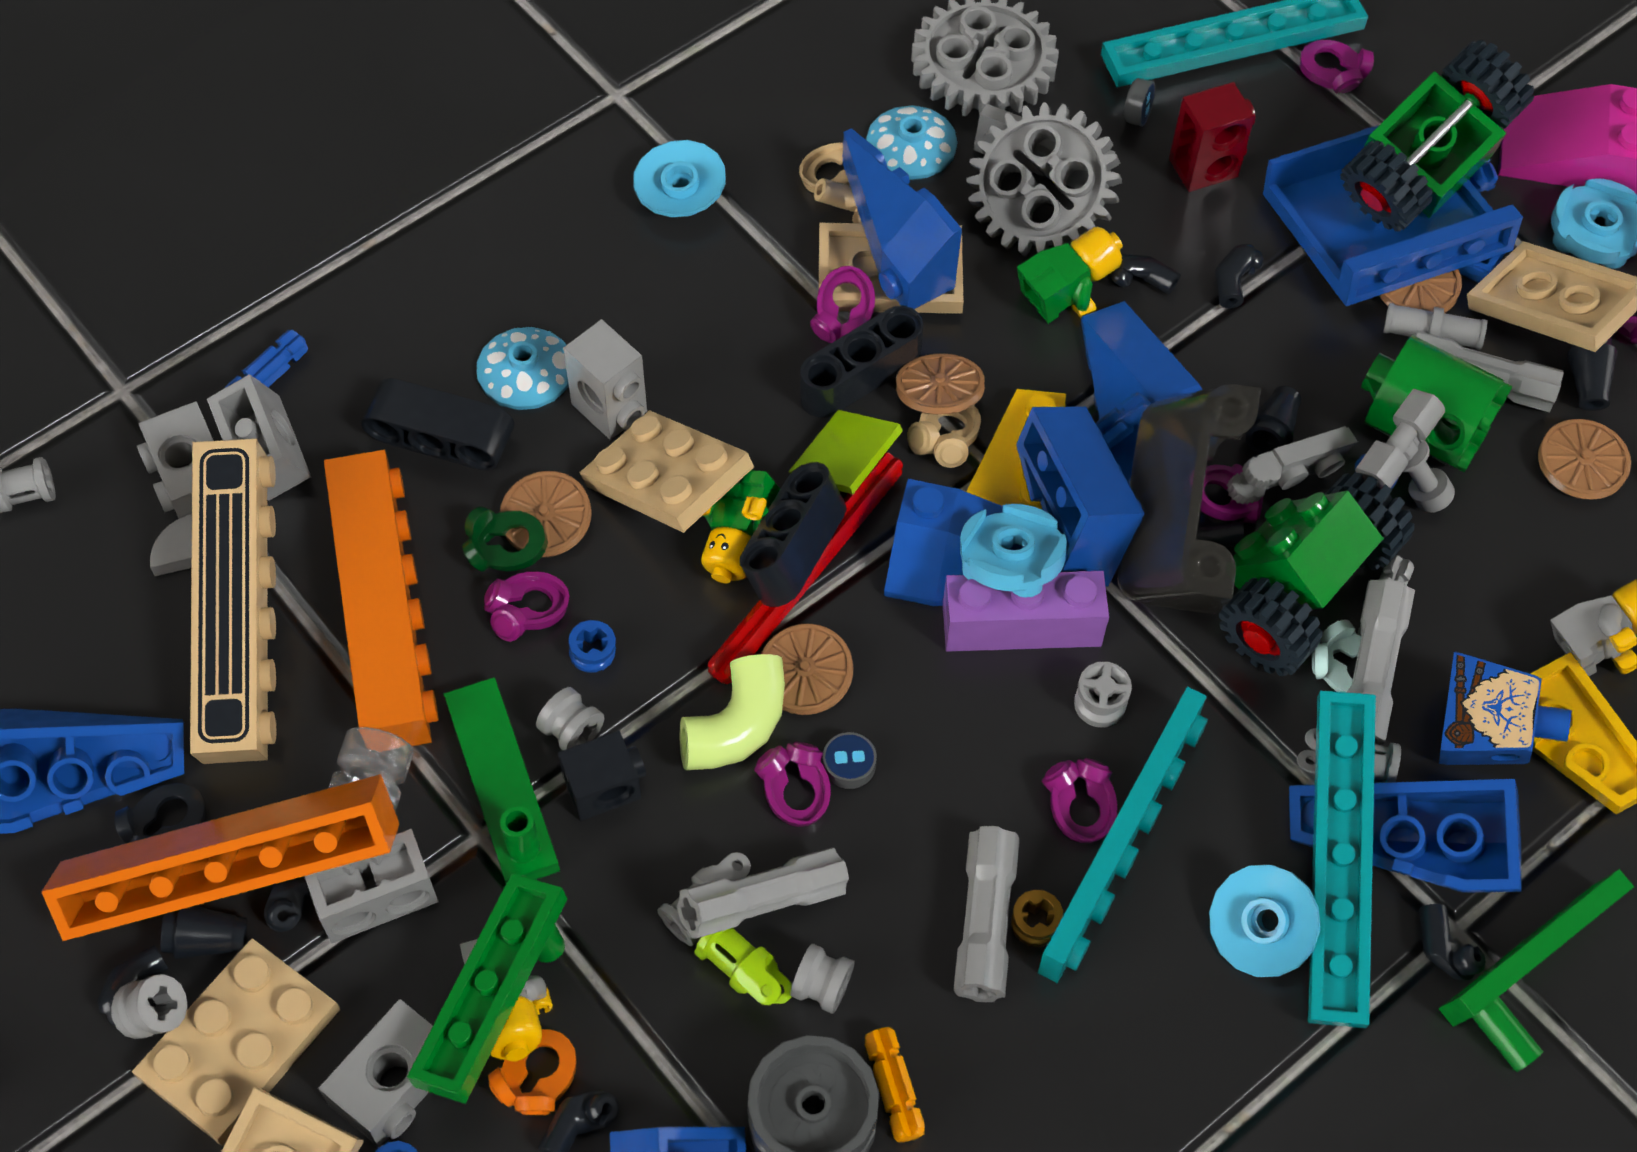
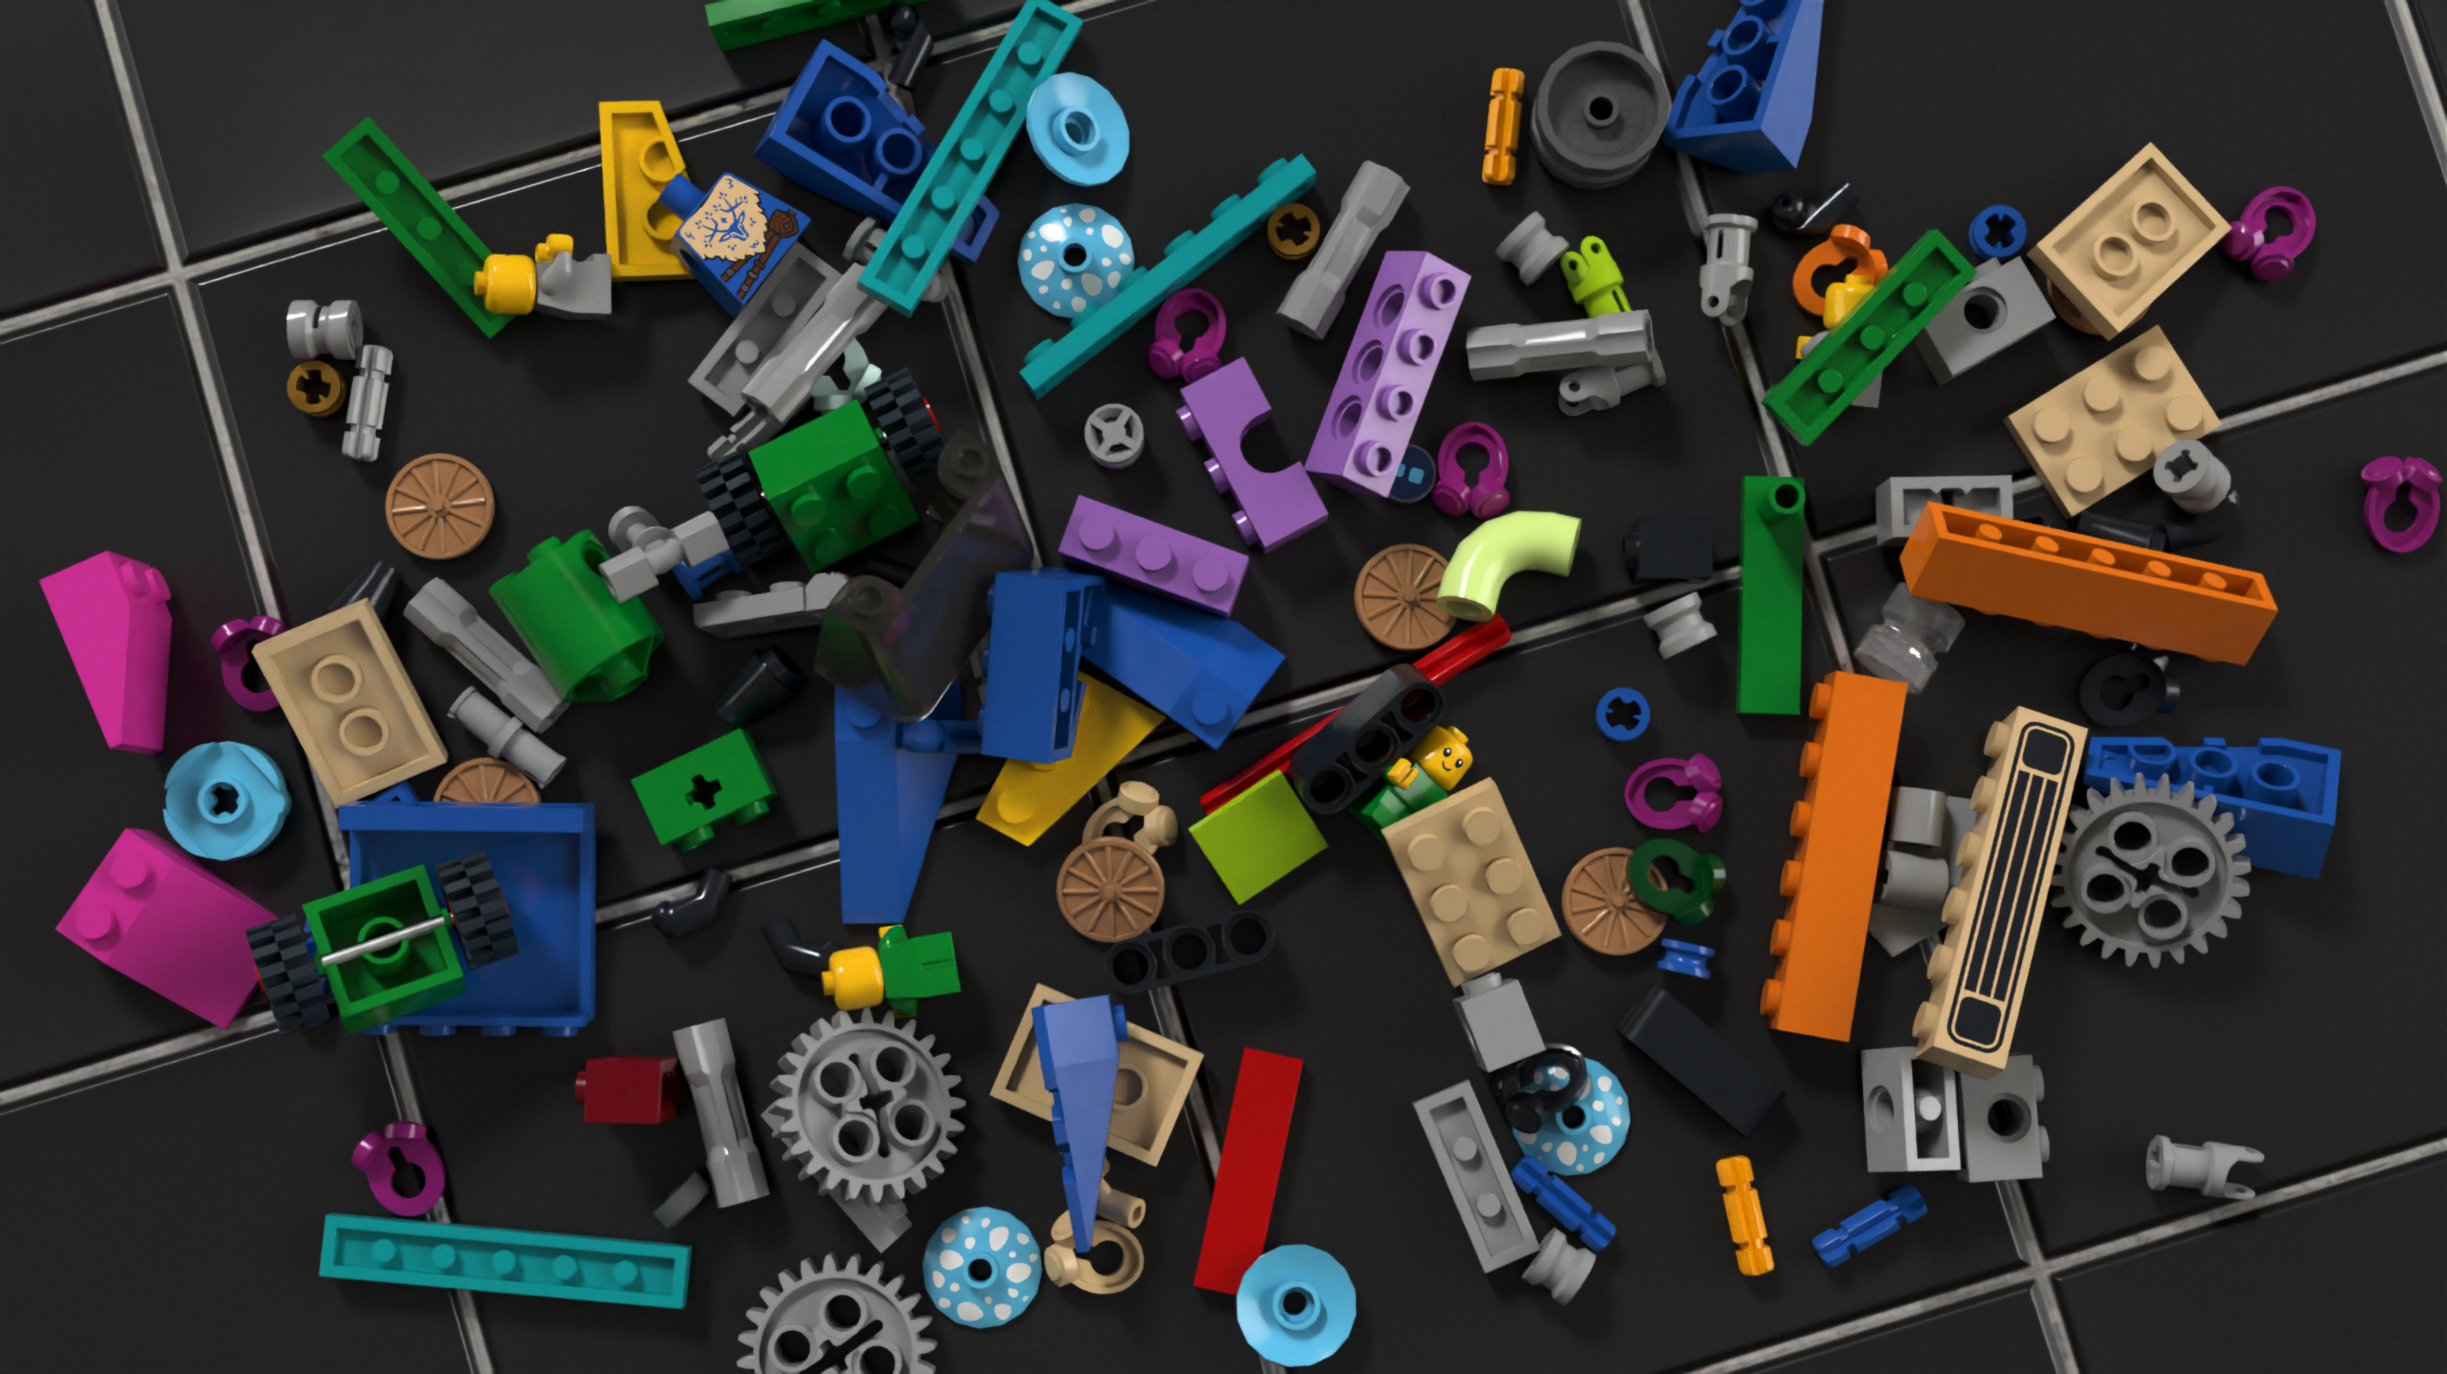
camera: 155 degrees left, 25 degrees up
(106, 669) = (2172, 824): none -> light grey gear
(173, 548) = (2037, 1020): light grey tile -> none
(307, 627) = (1917, 866): none -> light grey panel
(366, 343) = (1744, 1215): none -> light orange axle
(474, 487) = (1685, 958): none -> blue bush
(496, 262) = (1559, 1266): none -> light grey wheel
(508, 307) = (1563, 1203): none -> blue axle
(549, 352) = (1529, 1111): none -> black piece
(578, 293) = (1476, 1176): none -> light grey plate
(640, 1032) = (1727, 267): none -> light grey piece
(752, 255) = (1248, 1169): none -> red tile
(825, 321) = (1164, 1013): magenta piece -> none
(902, 819) = (1387, 372): none -> medium lavender brick
(953, 687) = (1271, 505): none -> medium lavender arch
(1020, 570) = (1150, 568): medium azure plate -> none
(1167, 180) = (730, 1150): none -> light grey axle
(1202, 849) = (1070, 289): none -> medium azure dish
(1272, 339) = (671, 790): none -> green brick
(1424, 672) = (765, 327): none -> light grey plate

